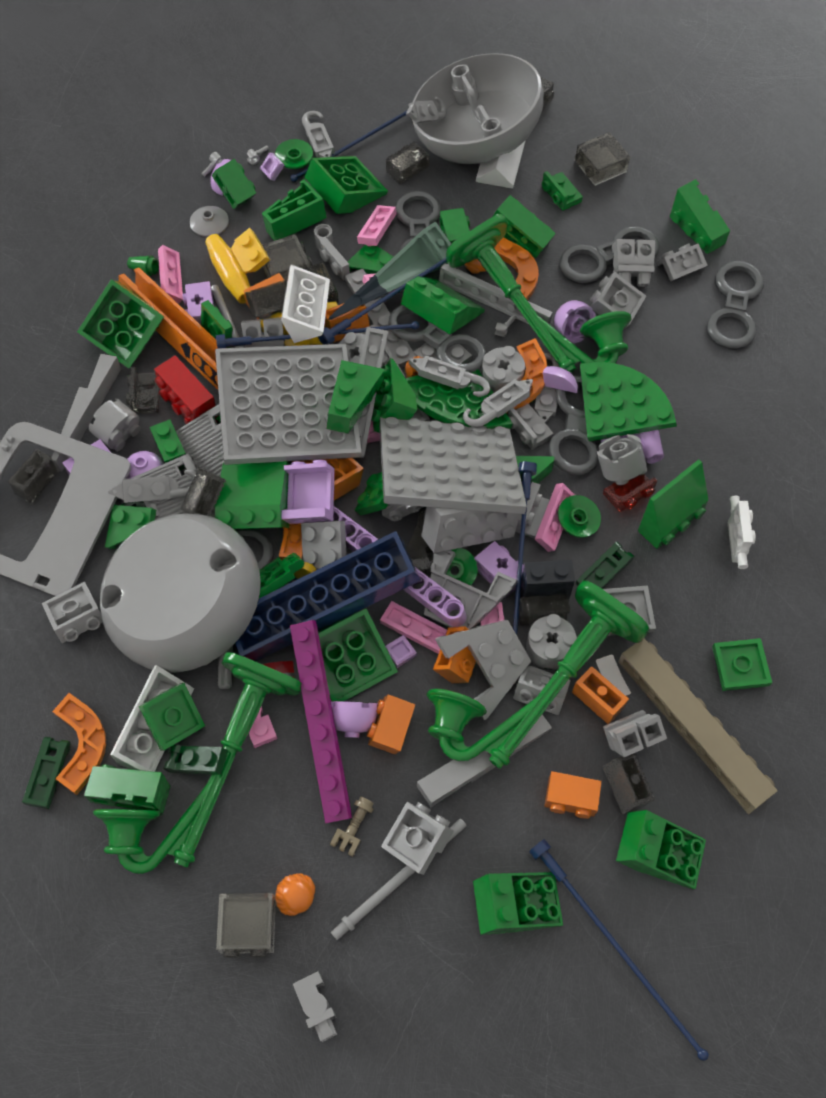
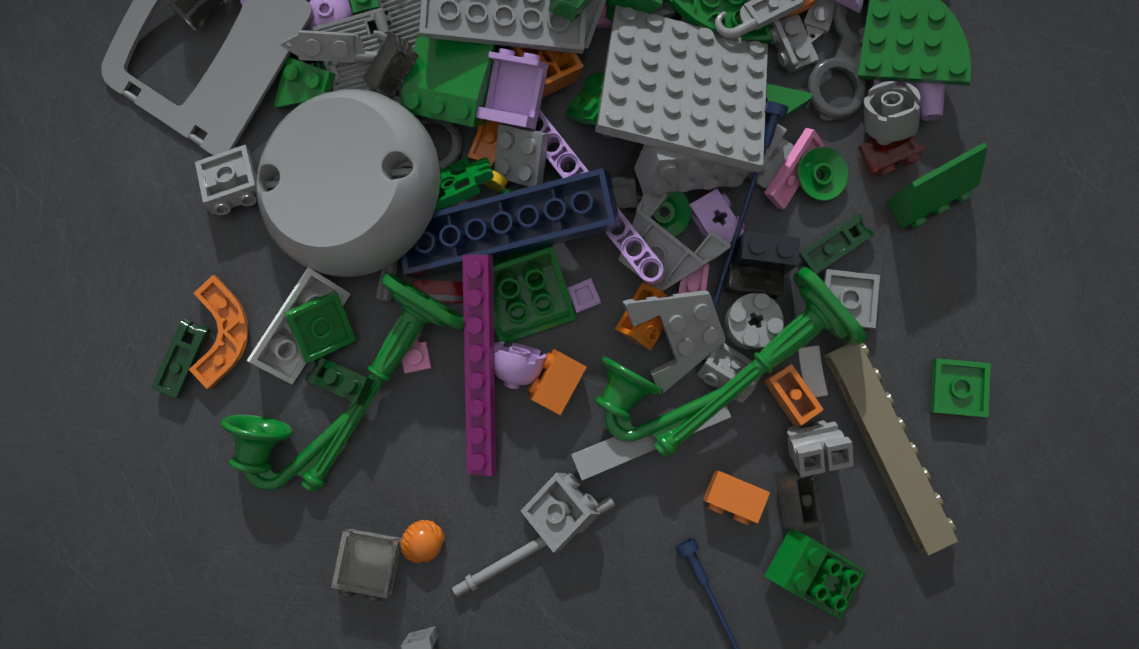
camera: 10 degrees right, 20 degrees up
(128, 788) = (263, 396): wedge -> none
(364, 806) = (510, 464): dark tan hinge -> none
(412, 626) = (604, 271): bright pink plate -> none
(517, 902) = (650, 598): green slope -> none
(740, 531) = (1006, 231): white plate -> none

